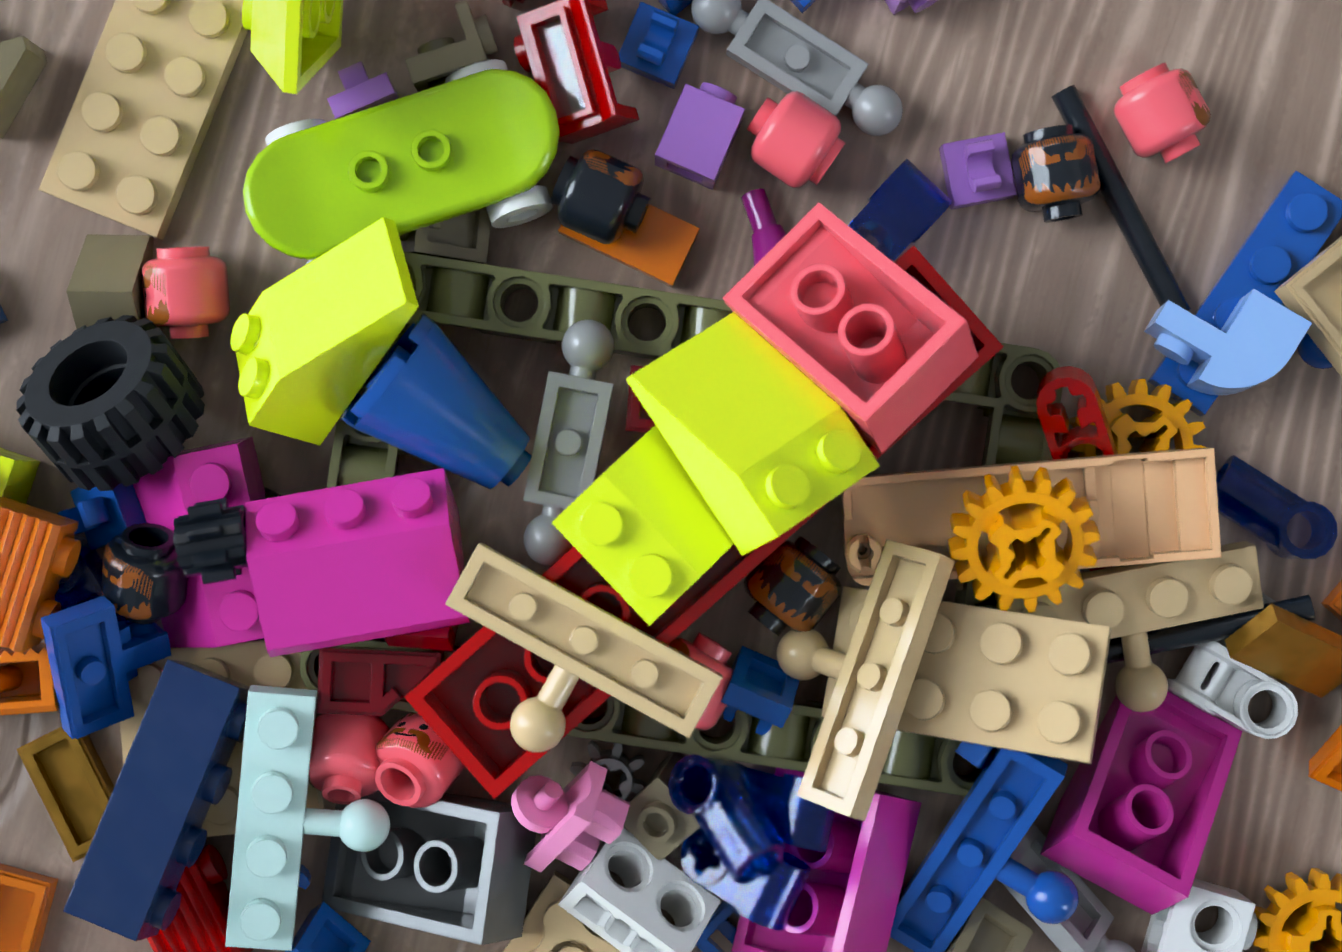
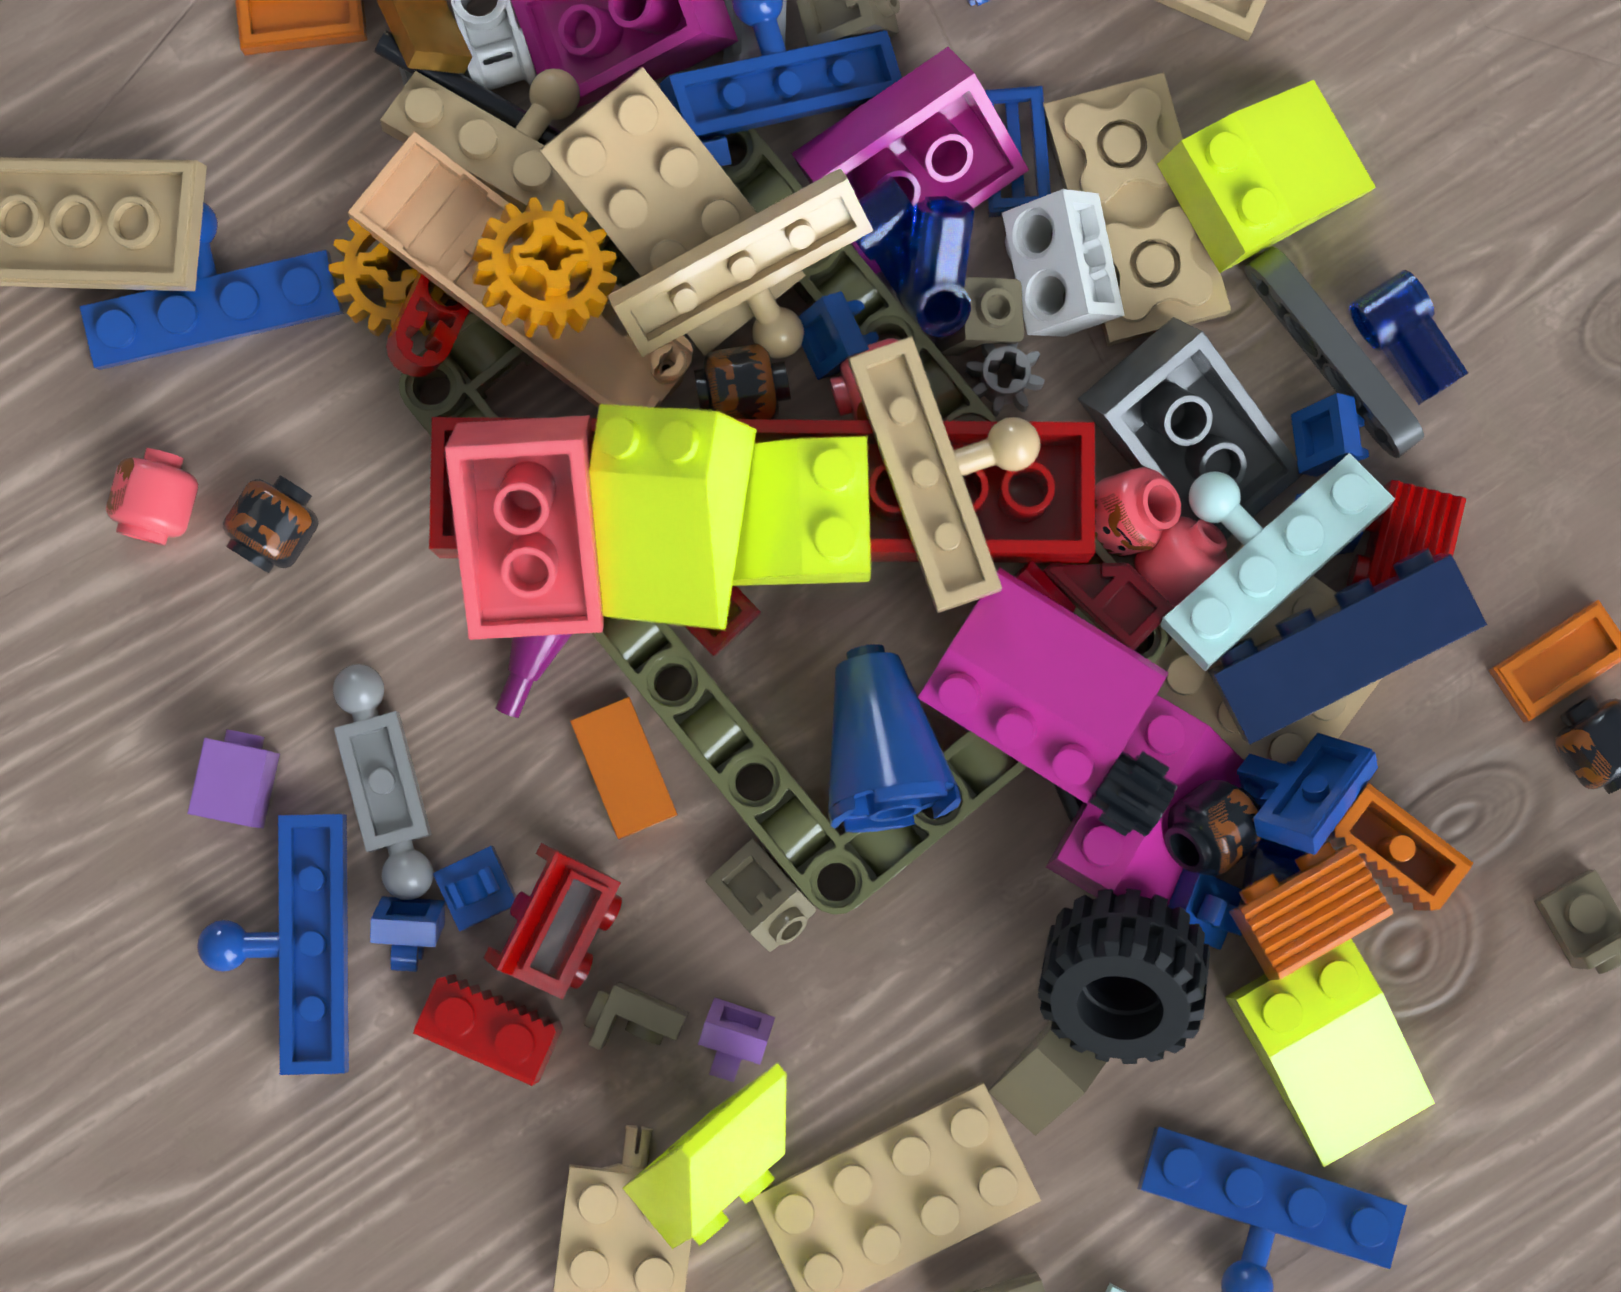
camera: 135 degrees left, 5 degrees down
(70, 785) = (1415, 723): pearl gold tile -> none
(185, 291) = (996, 1019): coral head -> none
(323, 333) = (917, 881): neon yellow slope -> none
(409, 160) = (748, 958): lime piece -> none
(568, 436) = (809, 641): light grey plate -> none
(570, 818) = (1056, 367): bright pink hips -> none
(600, 196) = (622, 806): black head -> none
(700, 134) = (505, 789): medium lavender brick -> none
(764, 900) = (969, 181): clear blue piece -> none
(795, 139) = (439, 720): coral head -> none
(901, 210) = (413, 598): clear blue piece -> none
(977, 170) = (325, 579): medium lavender tile -> none
(1122, 203) = (242, 455): black bar -> none
(1242, 354) = (257, 265): light blue brick -> none
(1266, 508) = (344, 141): clear blue piece -> none

